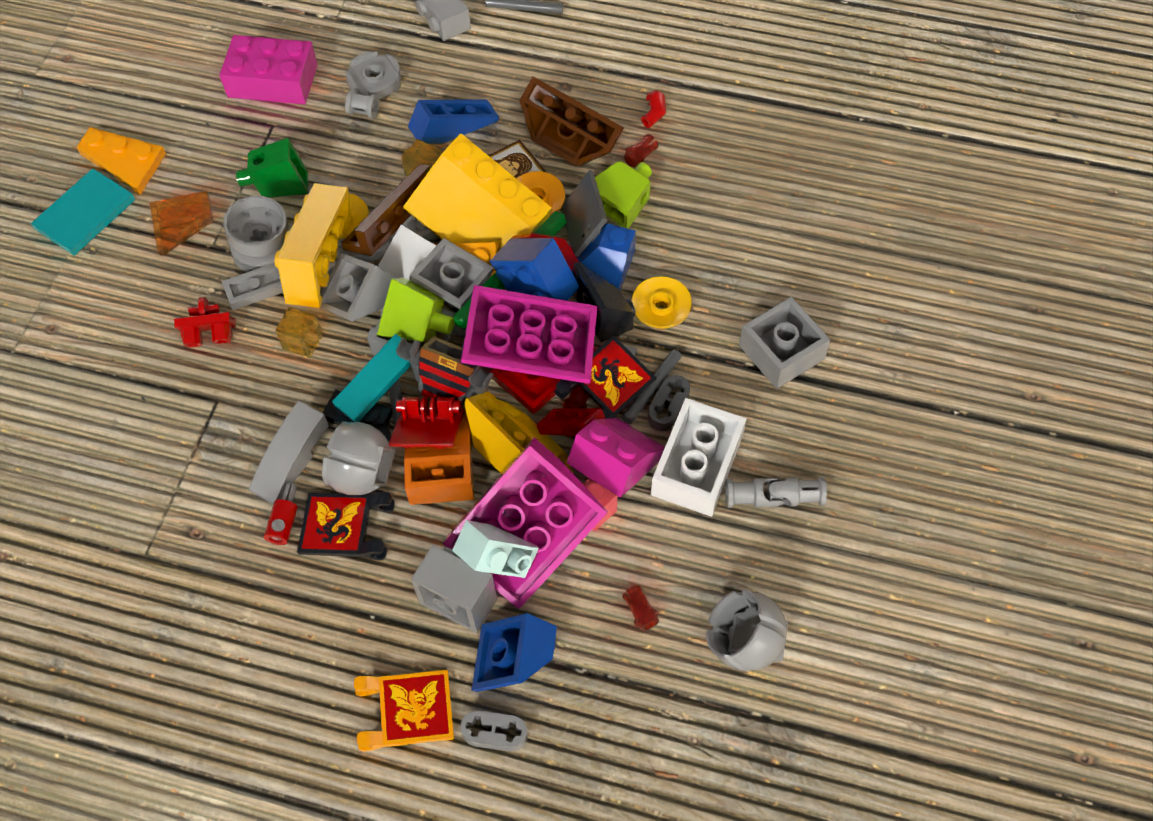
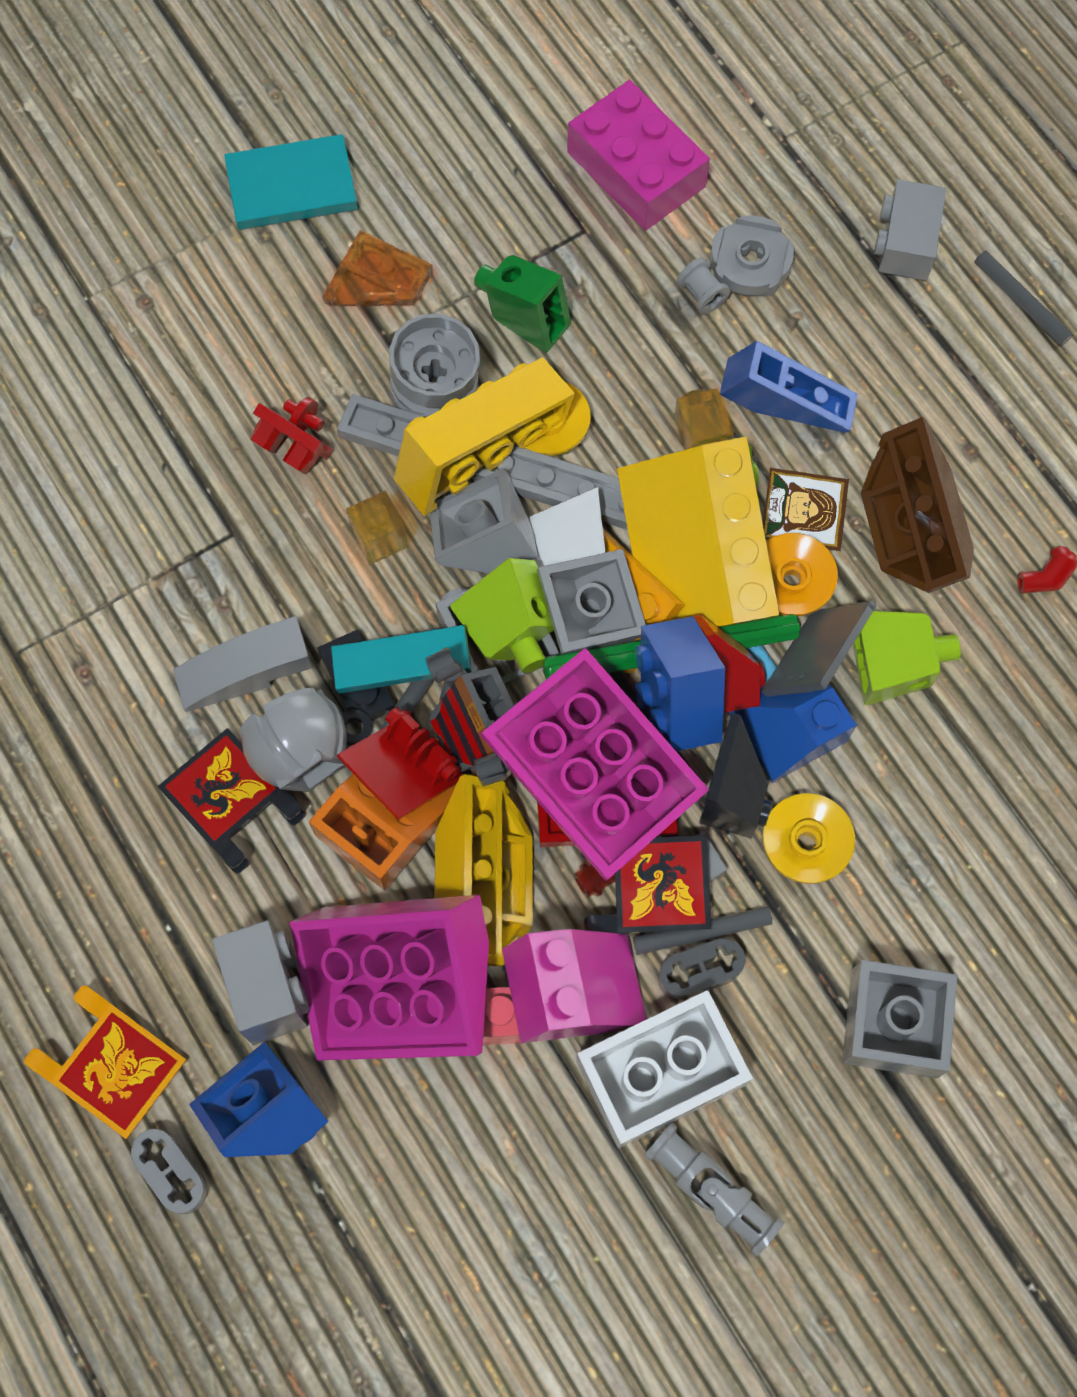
camera: 40 degrees right, 10 degrees up
(124, 157) = (388, 143): light orange wing -> none
(282, 517) = (175, 733): red piece -> none
(385, 217) = (594, 461): reddish brown fence -> none
(494, 550) = (325, 984): light aqua slope -> none
(568, 420) = (561, 897): red plate -> none
(640, 151) = (966, 618): clear red pin -> none
(641, 609) = (438, 1182): clear red pin -> none
(747, 631) = (513, 1325): light grey piece -> none

